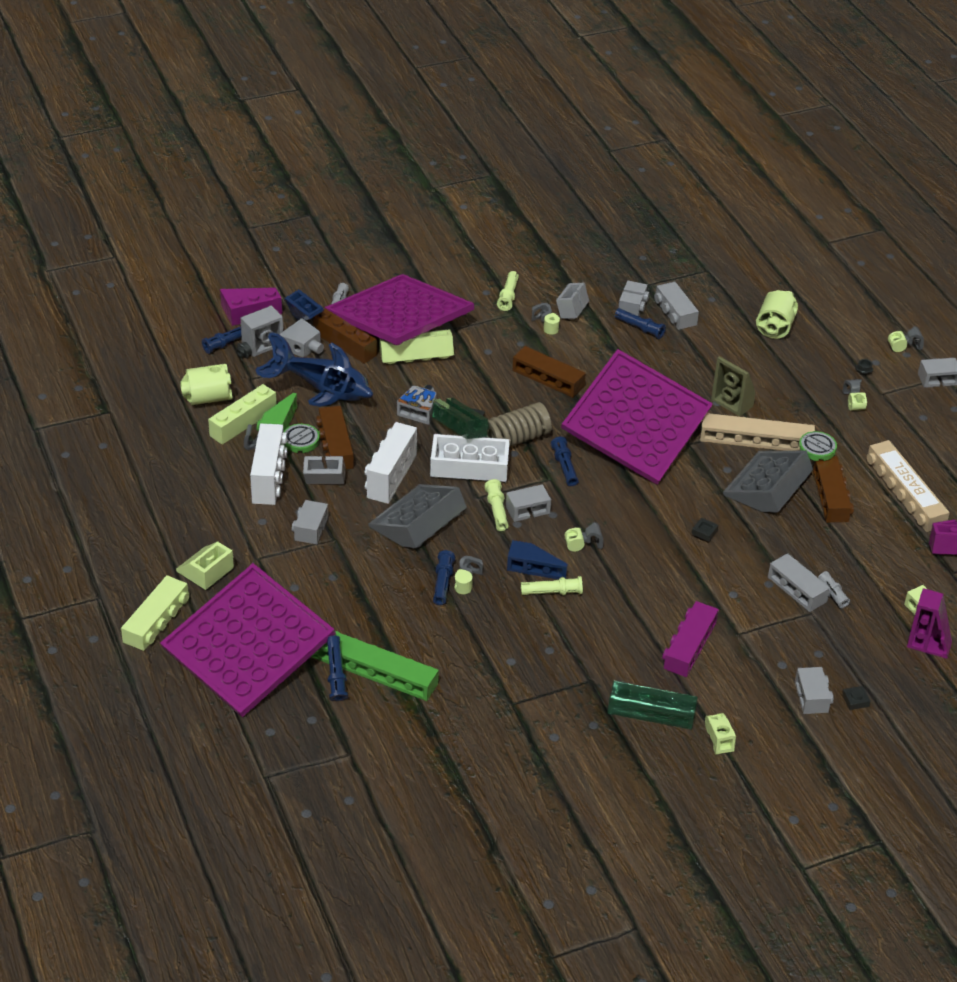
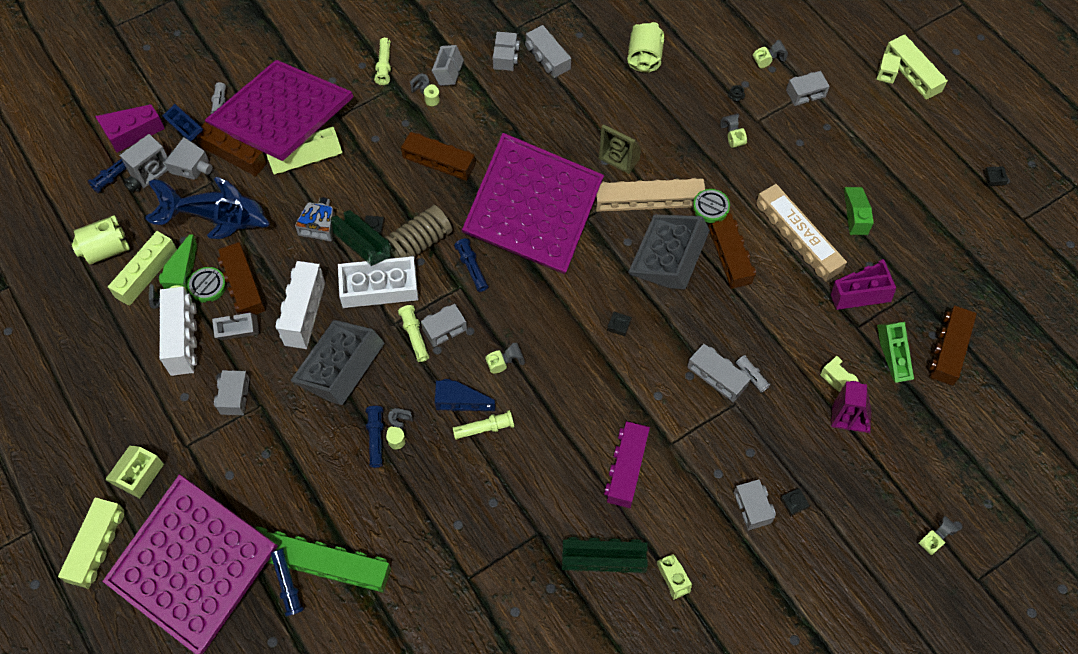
camera: 10 degrees left, 20 degrees up
(647, 325) = (523, 81): dark blue pin -> none

